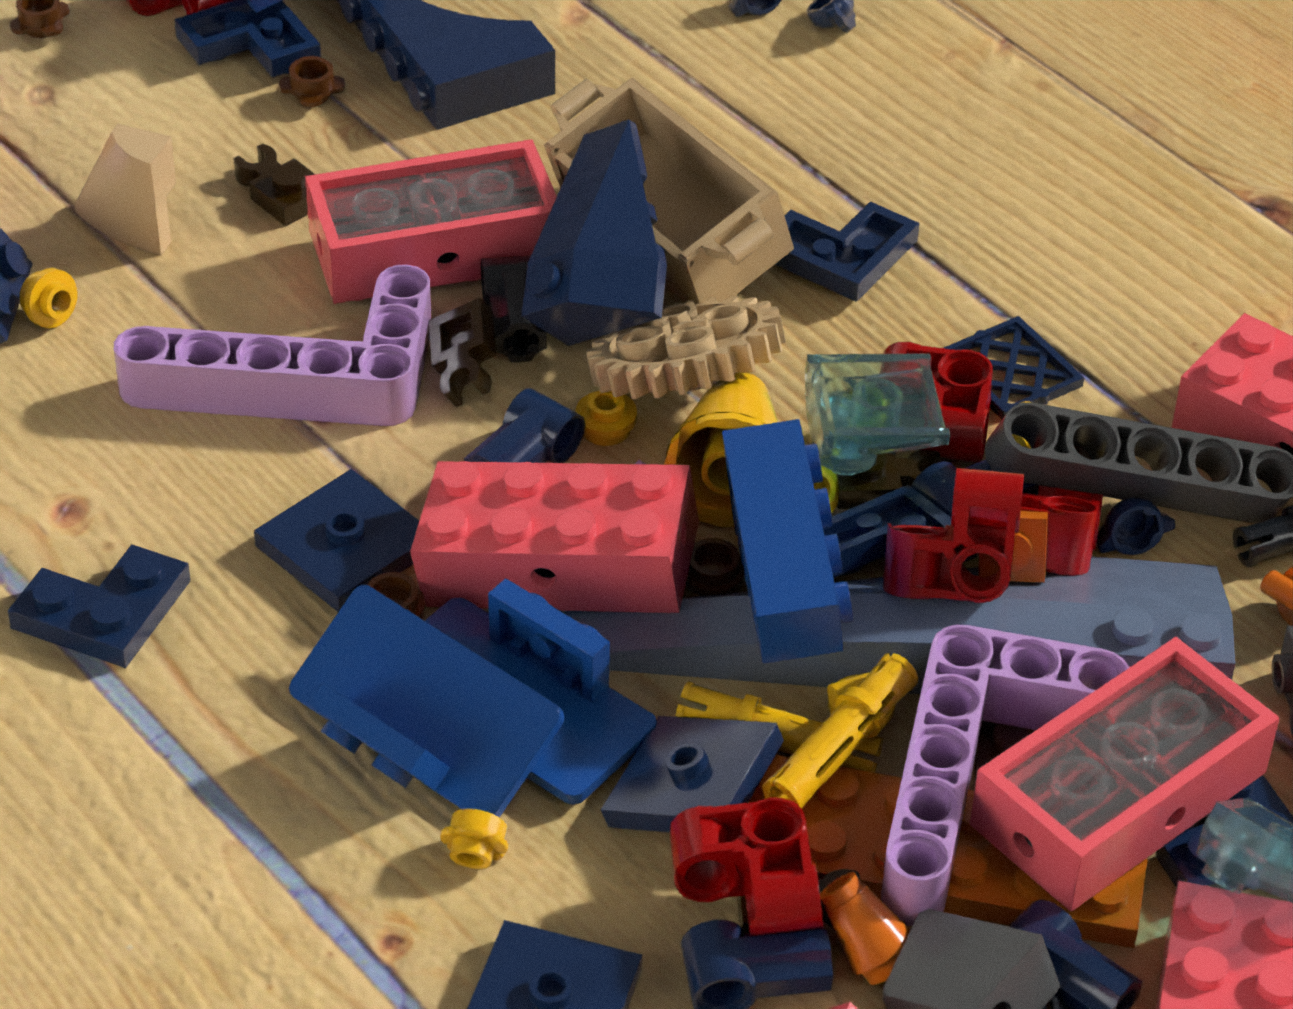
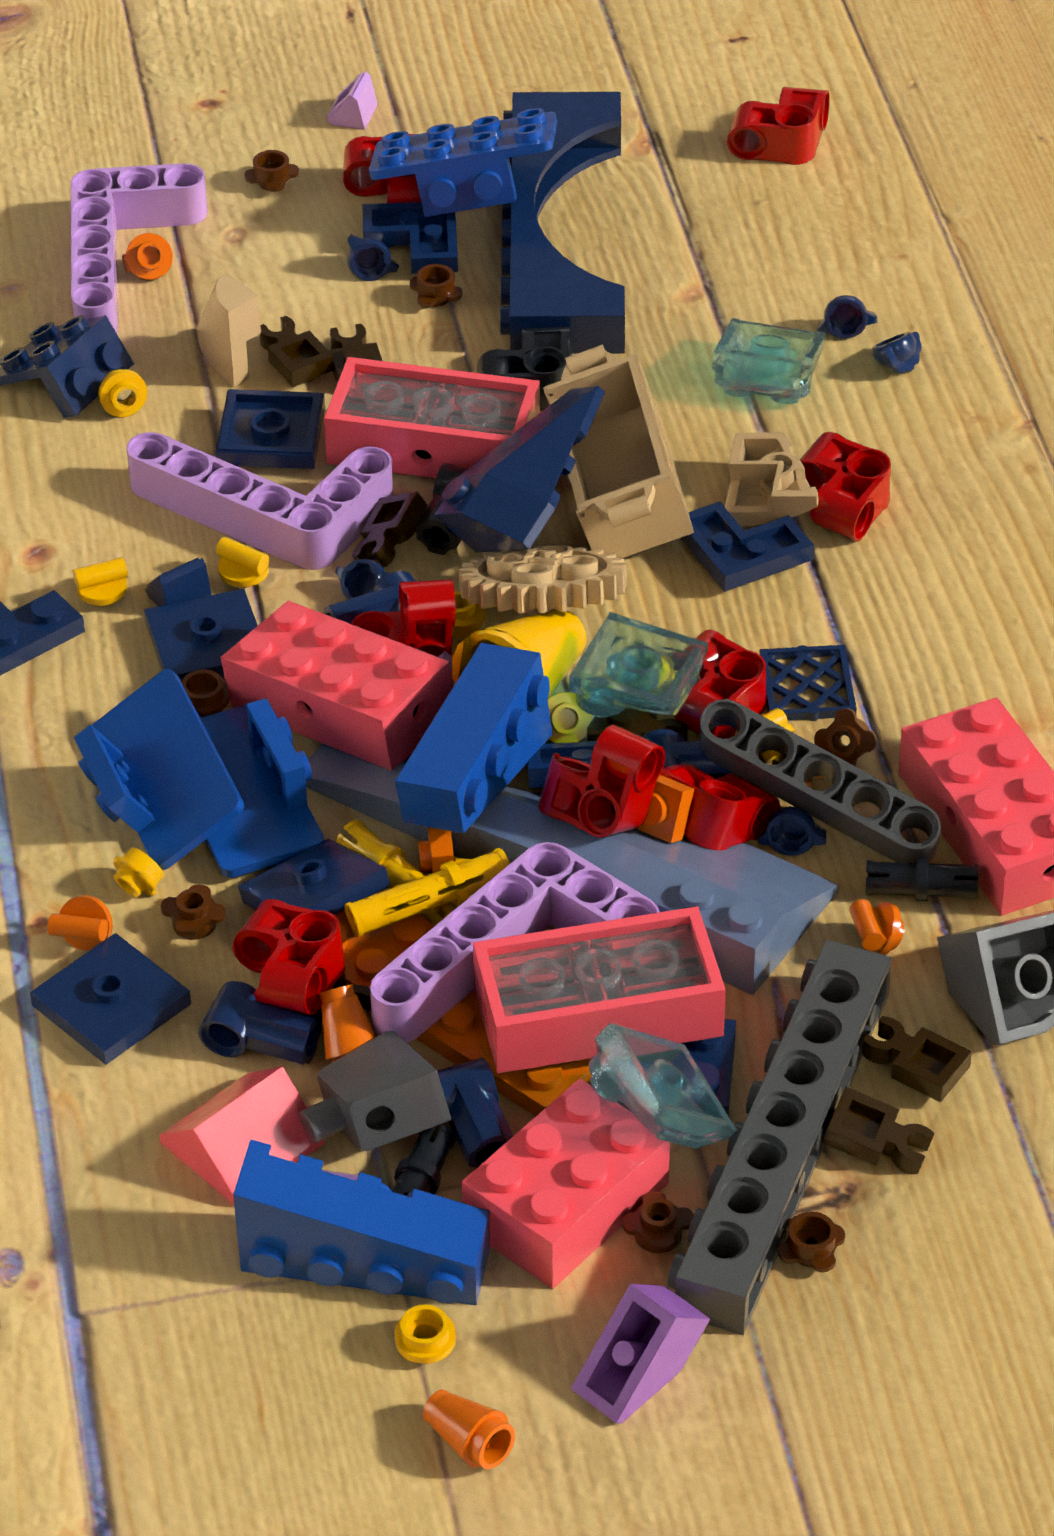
camera: 30 degrees right, 0 degrees up
(182, 516) = (102, 582): none -> yellow plate
(215, 198) = (295, 356): none -> dark brown plate
(218, 74) = (369, 258): none -> dark blue piece
(248, 284) = (271, 428): none -> dark blue plate
(272, 489) = (180, 584): none -> dark blue slope
(327, 442) = (241, 564): none -> yellow plate
(459, 922) = (82, 922): none -> orange plate
(476, 414) = (359, 577): none -> dark blue piece
(486, 117) = (539, 359): none -> black piece
(571, 860) = (193, 912): none -> reddish brown plate
(597, 427) = (423, 617): none -> red piece
(723, 55) = (767, 360): none -> clear light blue slope
(802, 688) = (435, 850): none -> orange plate
(820, 172) = (766, 480): none -> tan slope
(896, 145) = (849, 484): none -> red piece
(1108, 394) = (846, 723): none -> reddish brown plate

